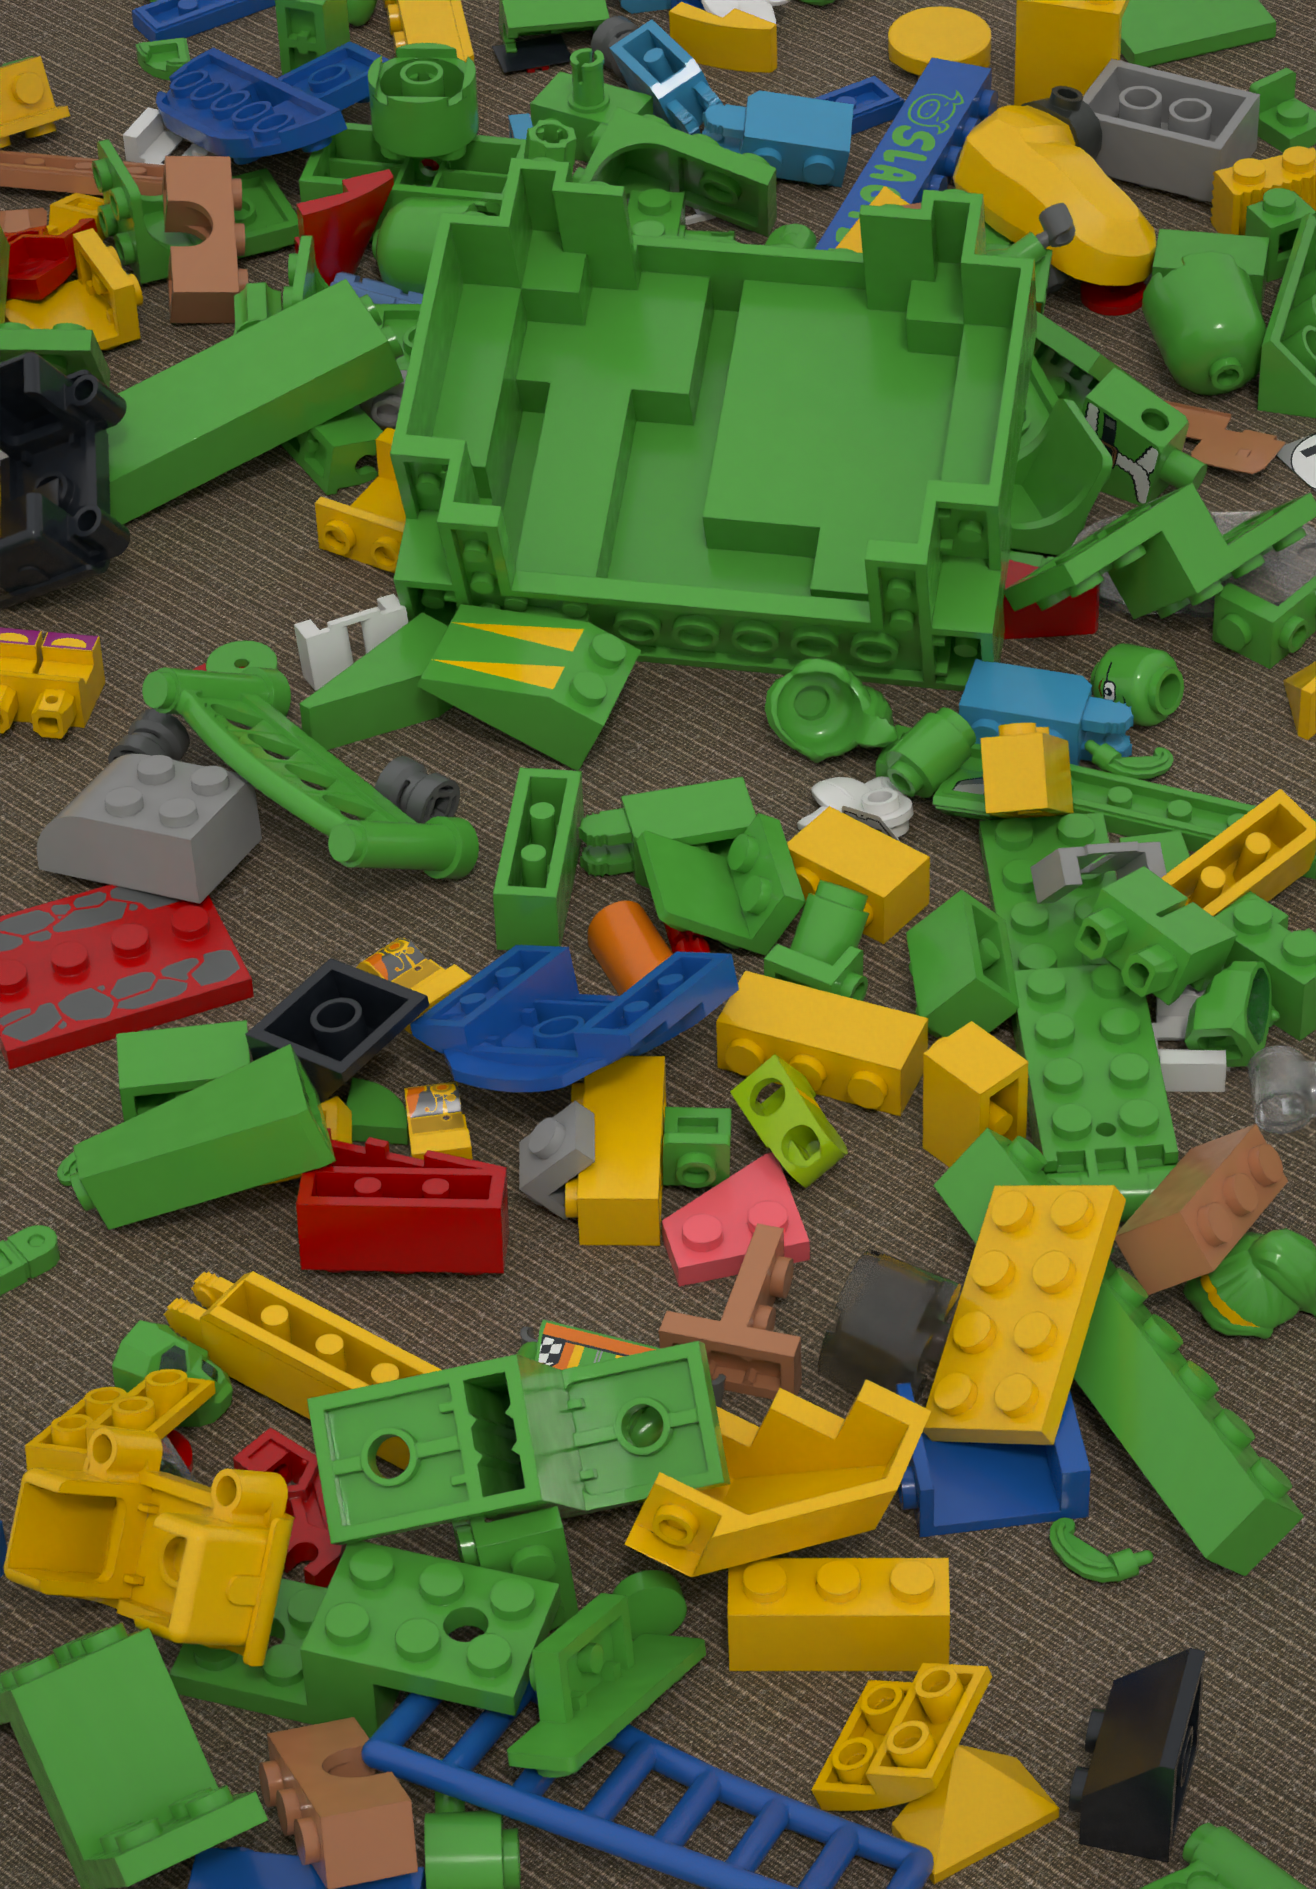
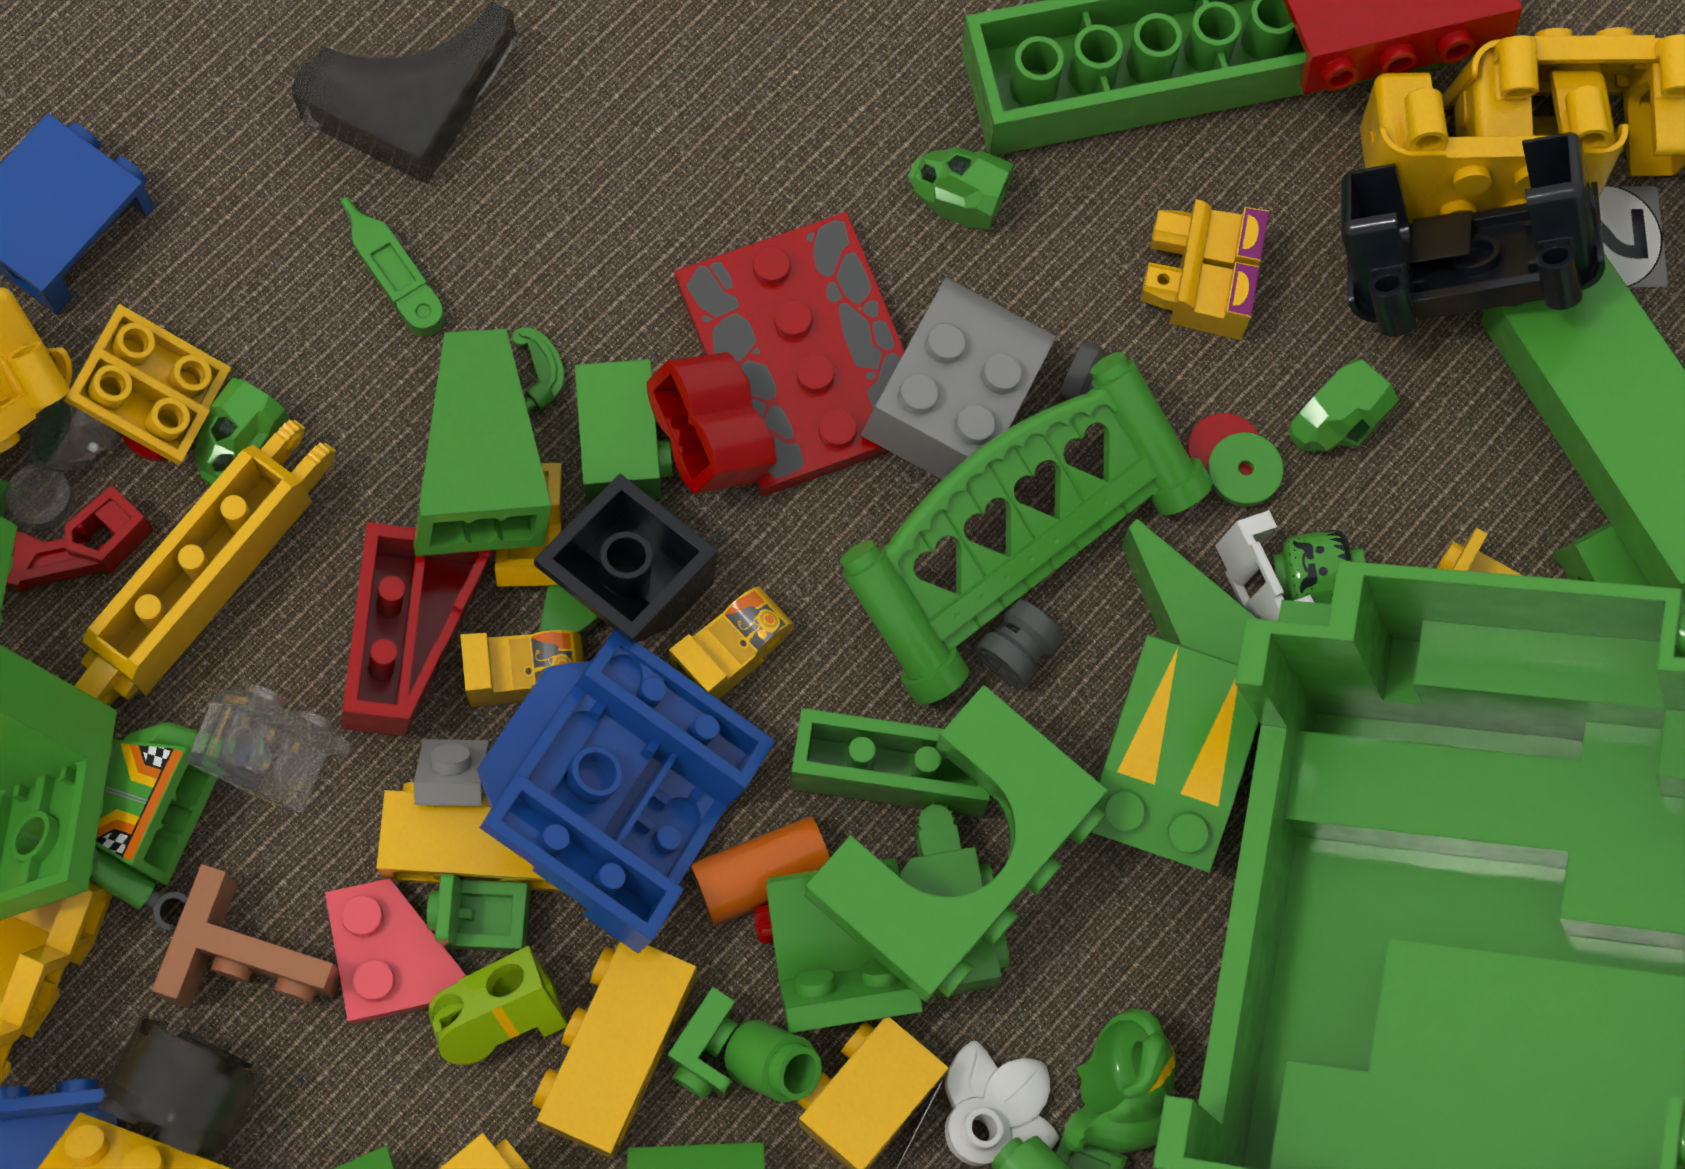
camera: 85 degrees right, 30 degrees up
(174, 989) = (711, 422): none -> red brick
(184, 599) = (1344, 409): none -> bright green rock
(343, 594) = (1311, 563): none -> bright green head
(509, 1288) = (264, 746): none -> clear bracket
(596, 715) = (929, 935): none -> bright green arch

